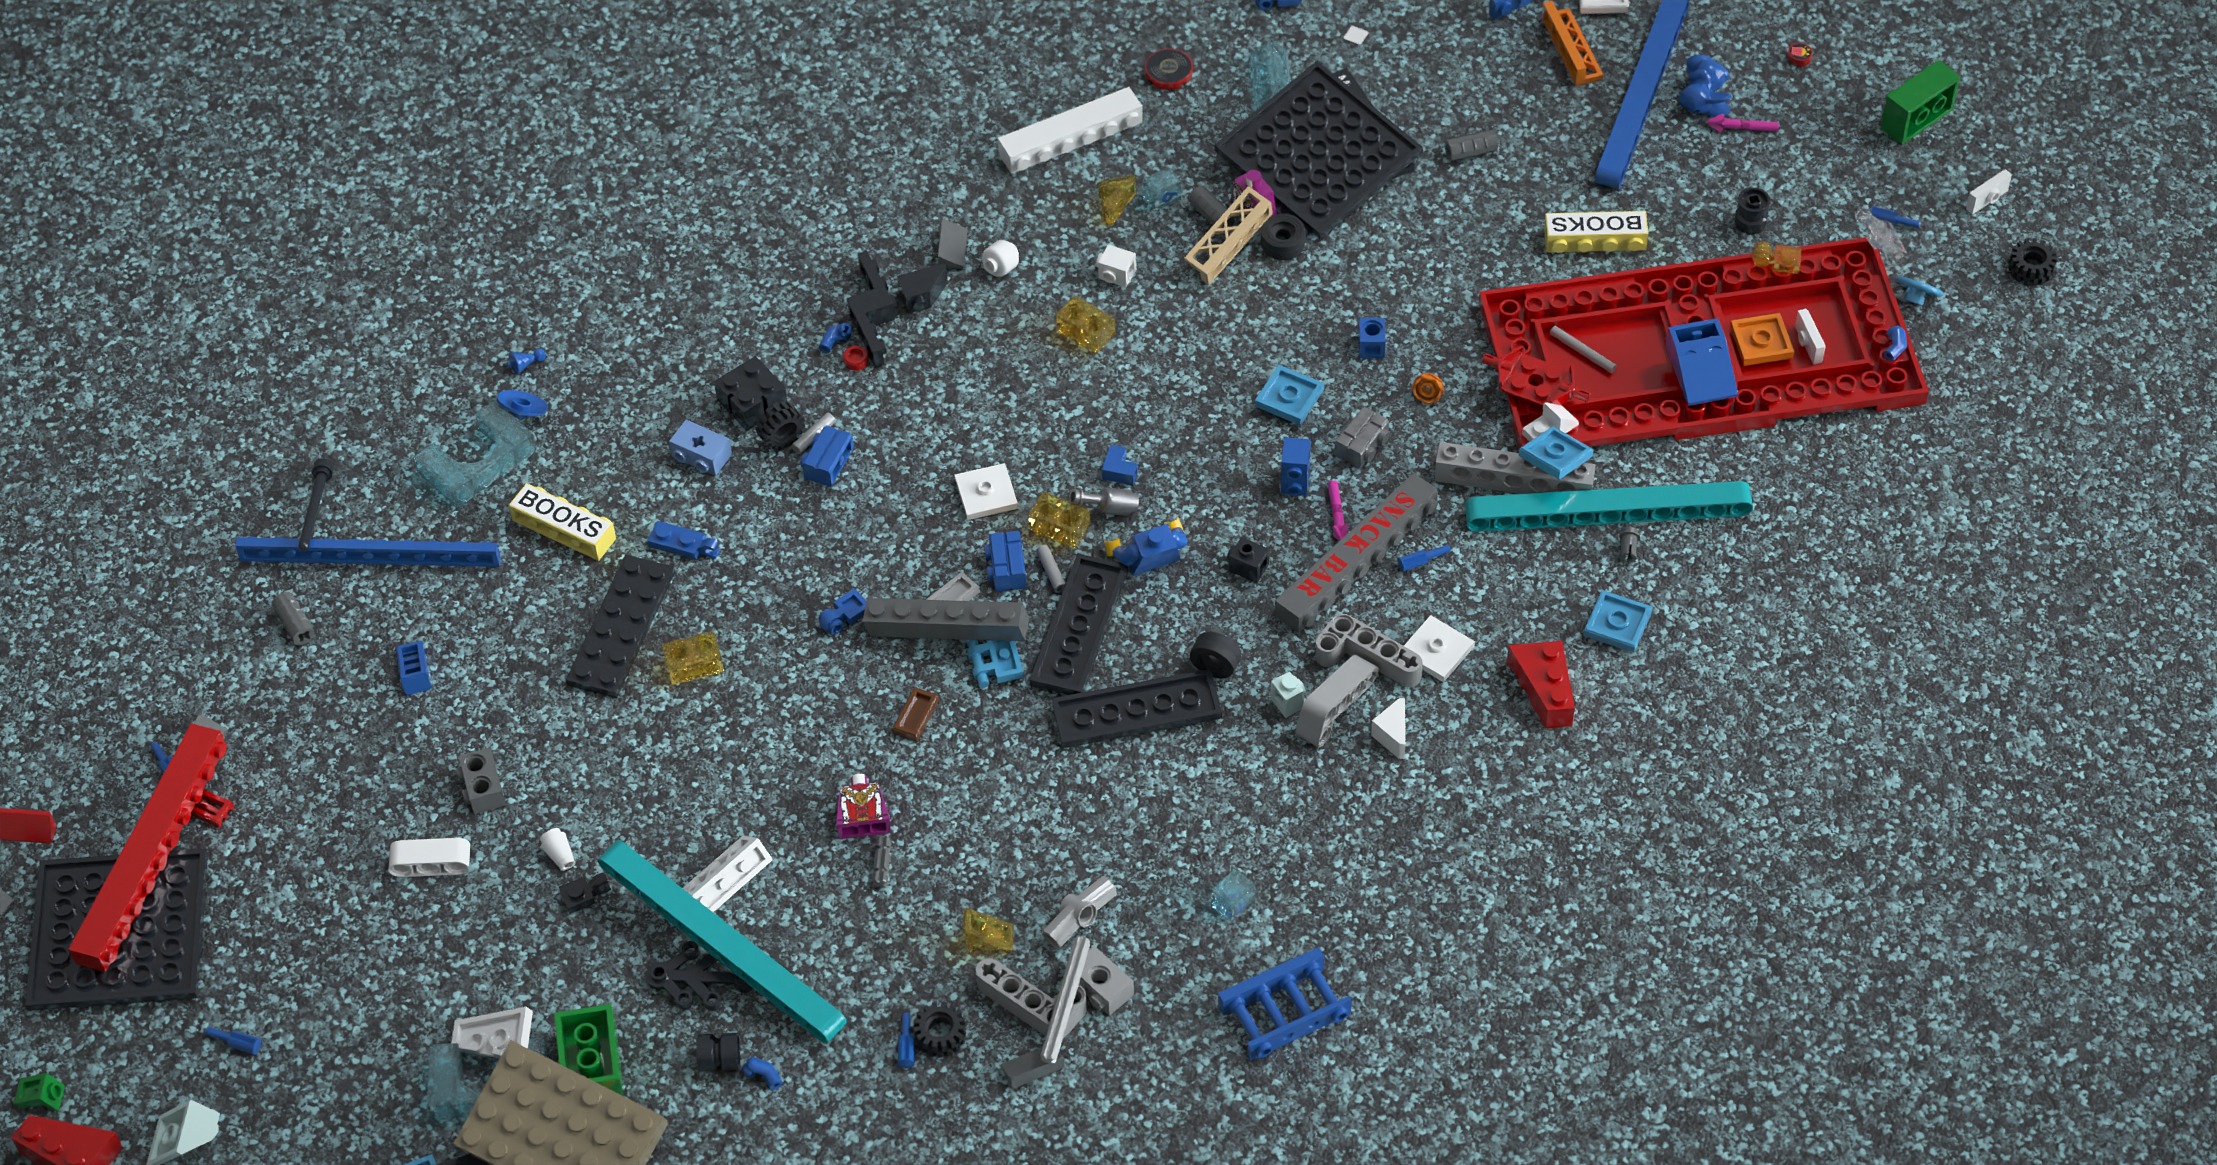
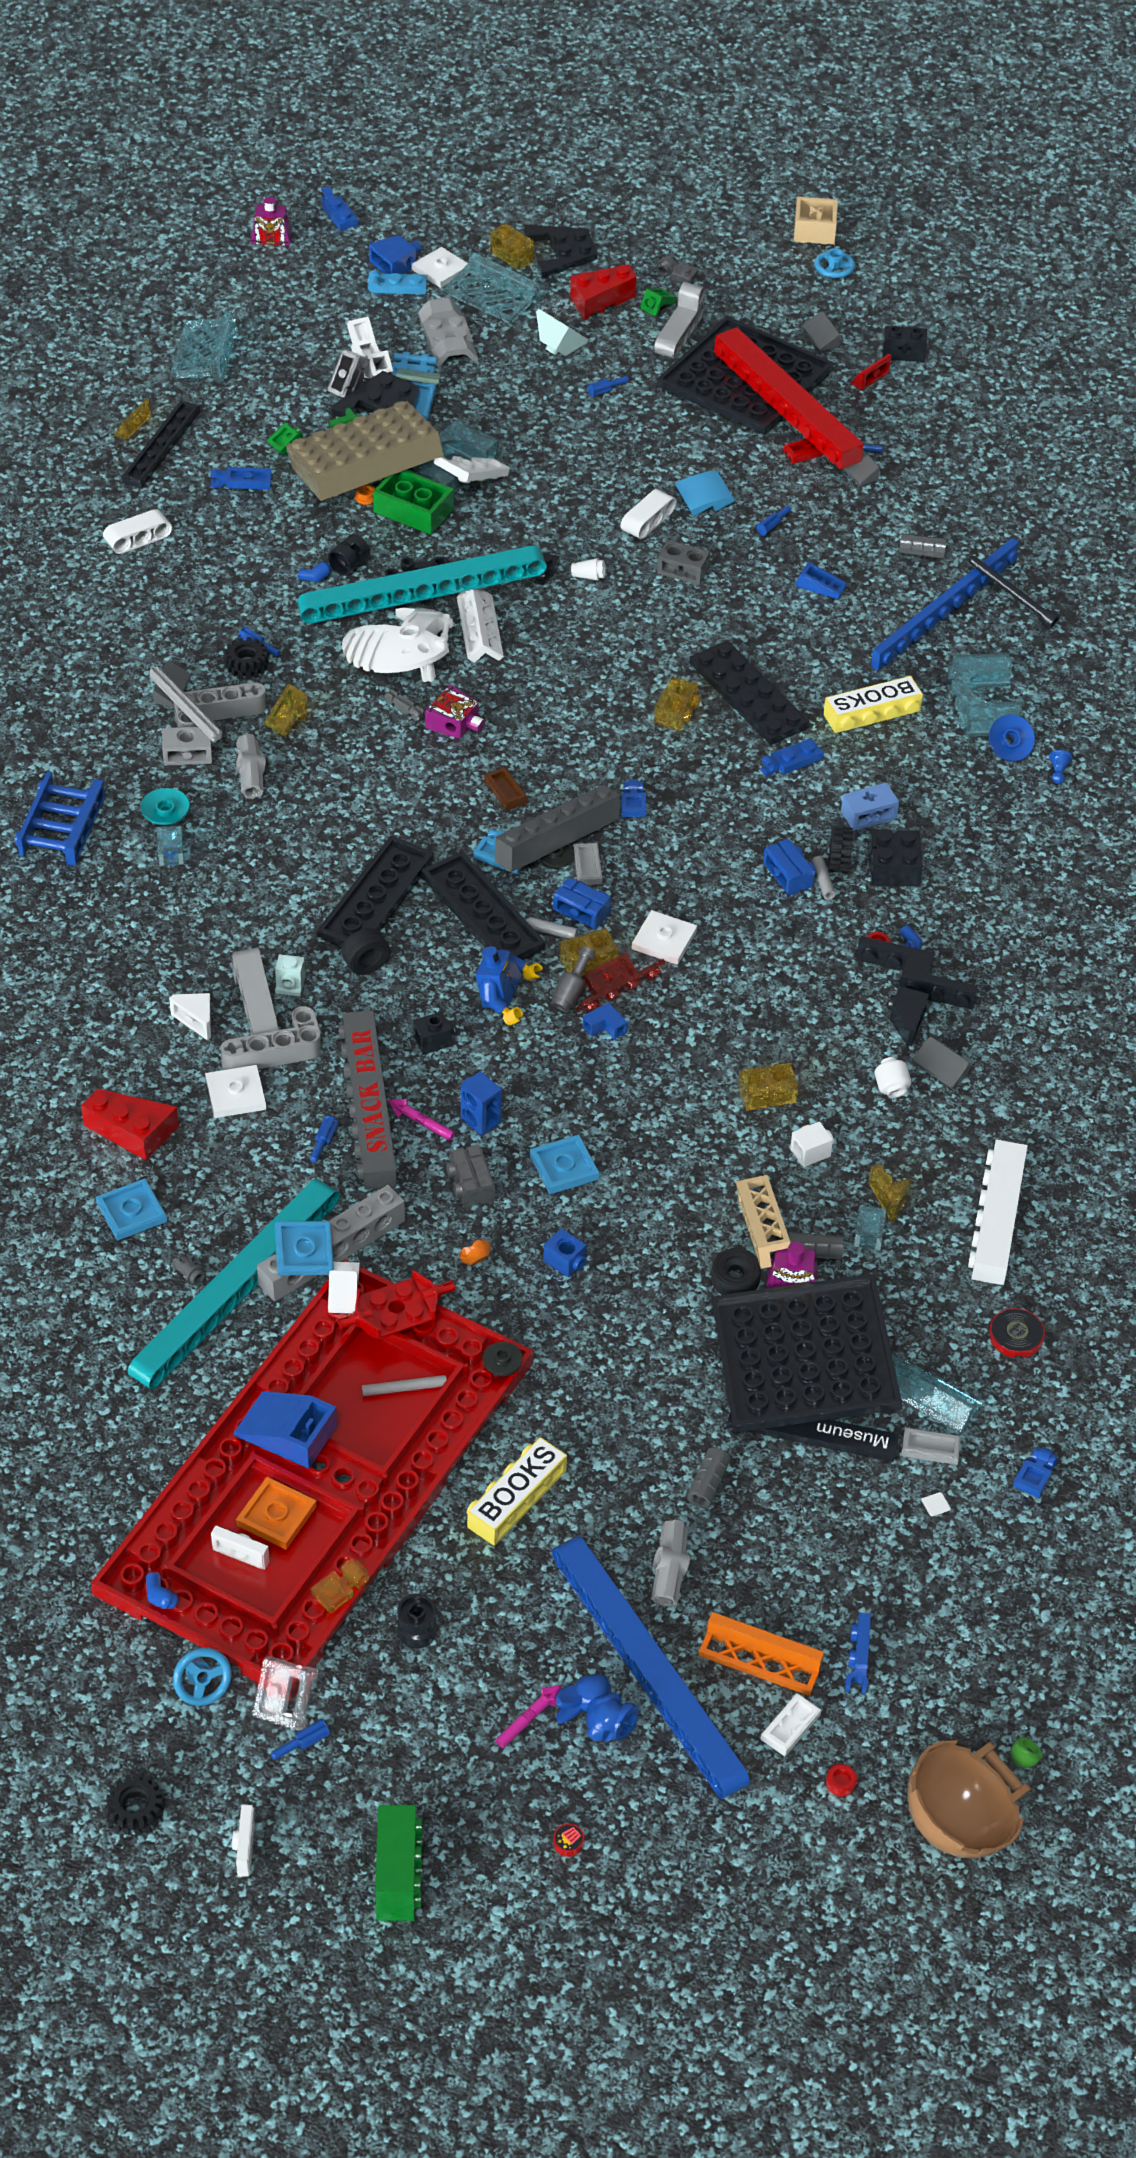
camera: 125 degrees right, 5 degrees down
(75, 1037) = (682, 321): none -> light grey beam
(349, 758) = (771, 521): none -> blue axle
(352, 837) = (704, 491): none -> dark azure slope
(834, 912) = (400, 647): none -> white piece
(1060, 477) = (613, 977): none -> clear red bracket
(1192, 925) = (165, 806): none -> teal dish
(1308, 52) = (931, 1446): none -> light grey tile
(1510, 294) = (502, 1358): none -> pearl dark grey piece
(1559, 121) = (670, 1563): none -> light grey piece

